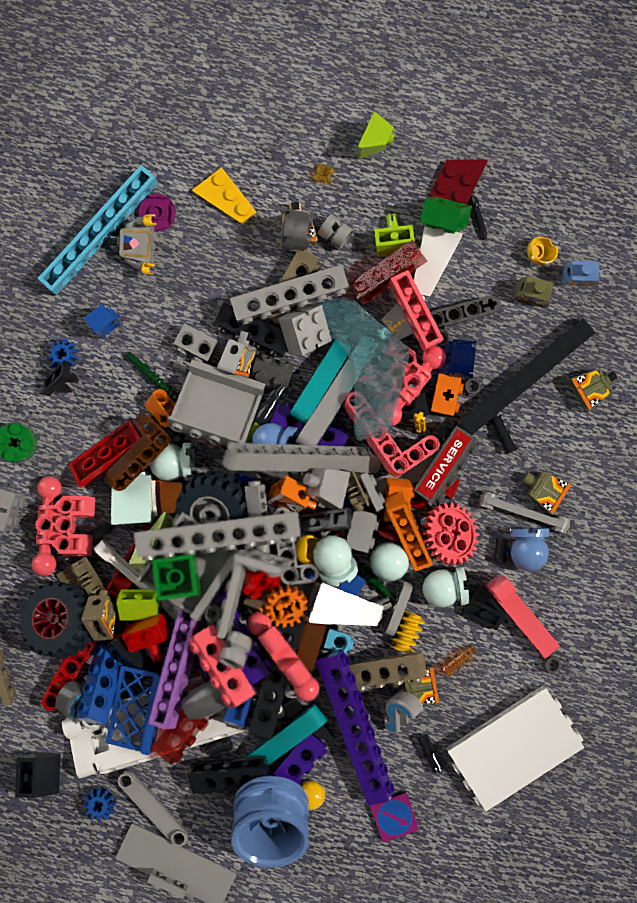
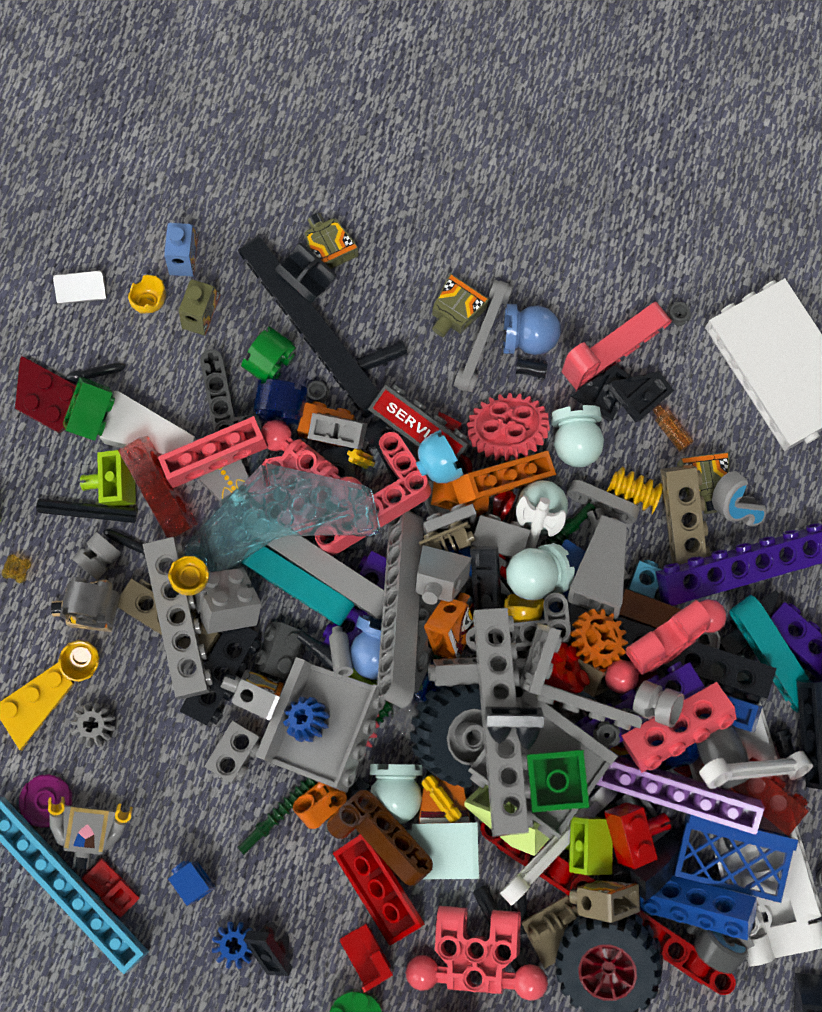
camera: 85 degrees left, 10 degrees down
(57, 449) = (366, 957): none -> red panel
(99, 264) = (111, 887): none -> red slope
(167, 496) = (441, 798): none -> yellow axle
(188, 696) = (719, 772): none -> white piece
(216, 551) = (525, 719): none -> black tile
(218, 237) = (97, 733): none -> light grey gear
(218, 387) = (300, 711): none -> blue gear
(254, 220) = (72, 657): none -> yellow hair
(269, 416) = (340, 653): none -> light grey cylinder
(318, 300) = (188, 575): none -> yellow hair
(349, 252) = (124, 540): none -> black piece
(370, 224) = (86, 510): none -> black axle
(376, 559) = (539, 518): none -> white piece
(416, 480) = (437, 459): none -> medium azure cylinder
(430, 753) = (792, 470): black axle -> none
(437, 403) = (337, 430): none -> light grey brick
(484, 635) = (640, 393): none -> black wing
(497, 347) = (269, 354): none -> green brick
(545, 199) = (80, 287): none -> slope
(565, 371) = (306, 273): none -> black panel

